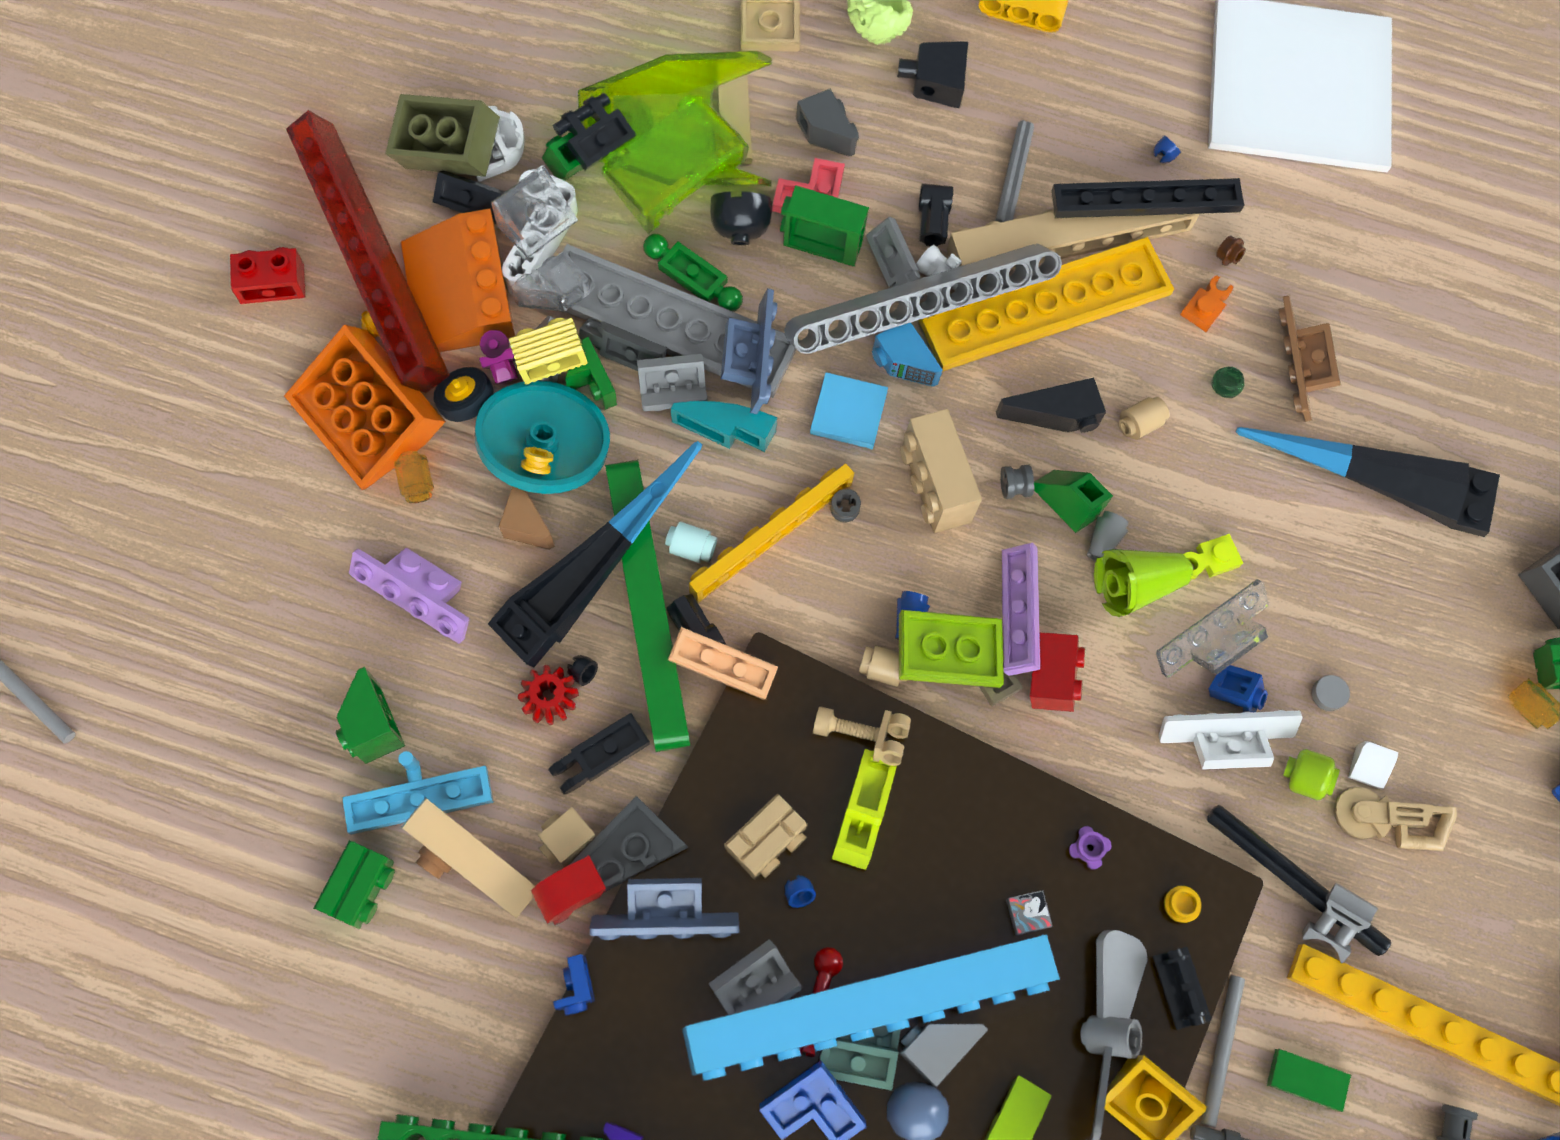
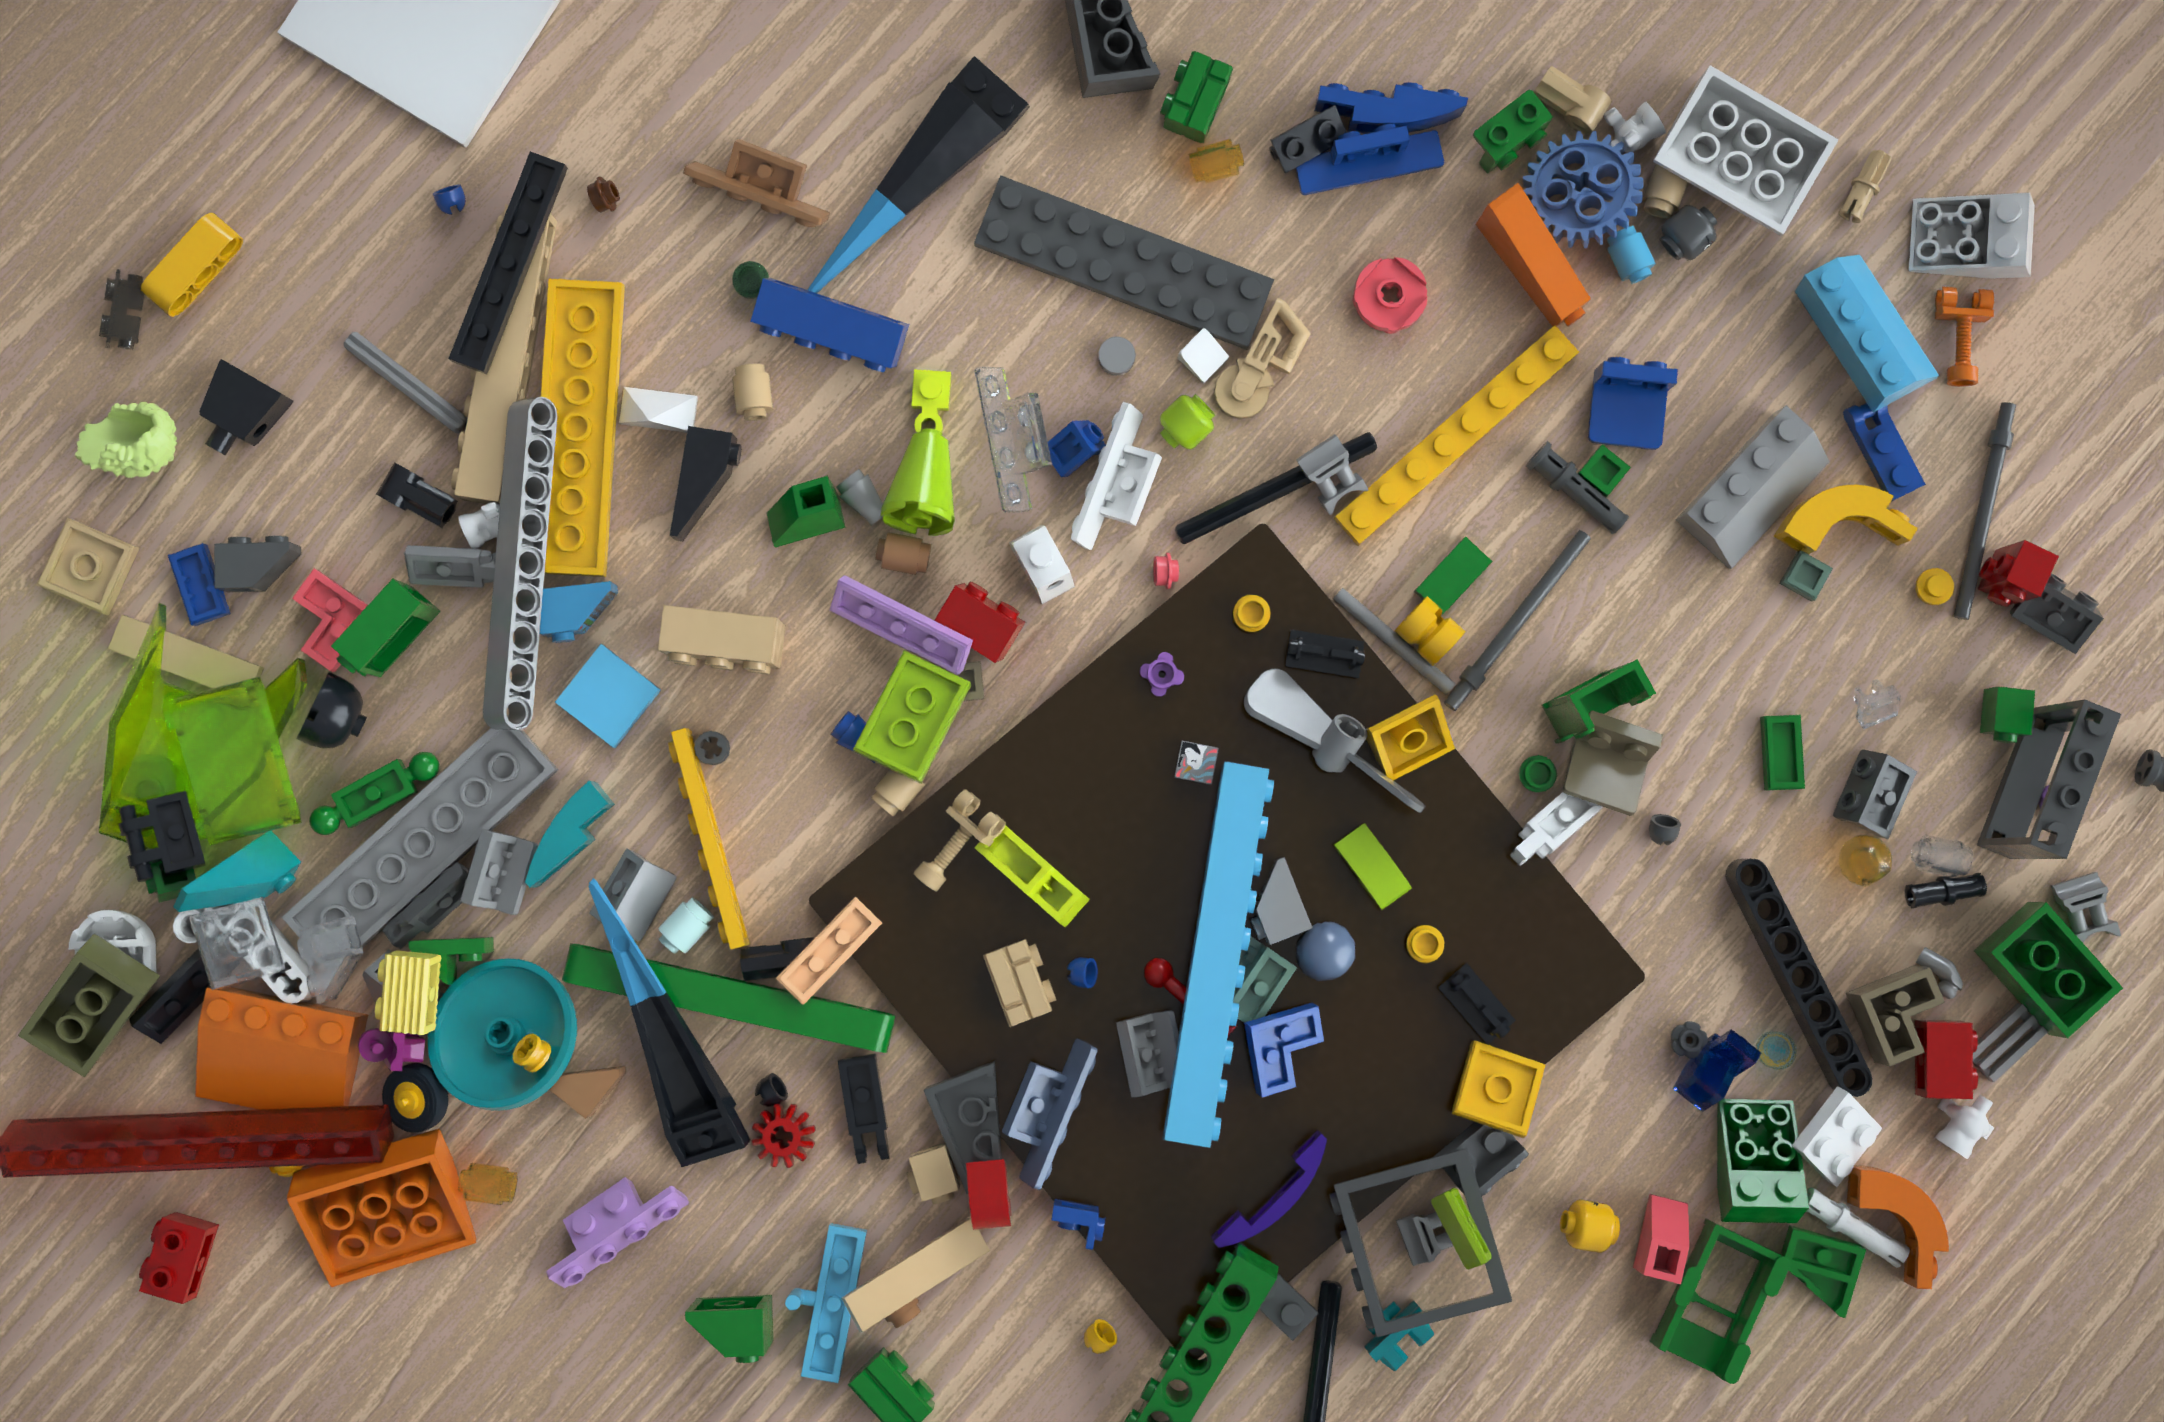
camera: 65 degrees left, 15 degrees up
(469, 1061) = (1100, 1336): none -> yellow hinge
(594, 205) = (248, 874): none -> teal slope
(700, 496) = (636, 892): none -> light grey panel
(747, 351) = (500, 780): sand blue bracket -> none
(782, 102) = (196, 582): none -> blue plate
(1017, 481) = (764, 560): dark grey wheel -> none
(1078, 588) = (903, 553): none -> medium nougat brick
(1090, 356) = (658, 409): none -> white slope
(1133, 700) = (1042, 563): none -> white torso
(1177, 813) = (1165, 570): none -> coral plate
(1206, 305) = (654, 255): orange plate -> none
(1230, 453) = (829, 323): none -> blue brick
(1252, 1078) = (1430, 631): none -> yellow wheel
(1409, 669) = (1123, 262): none -> dark grey plate
(1499, 917) = (1388, 273): none -> coral plate

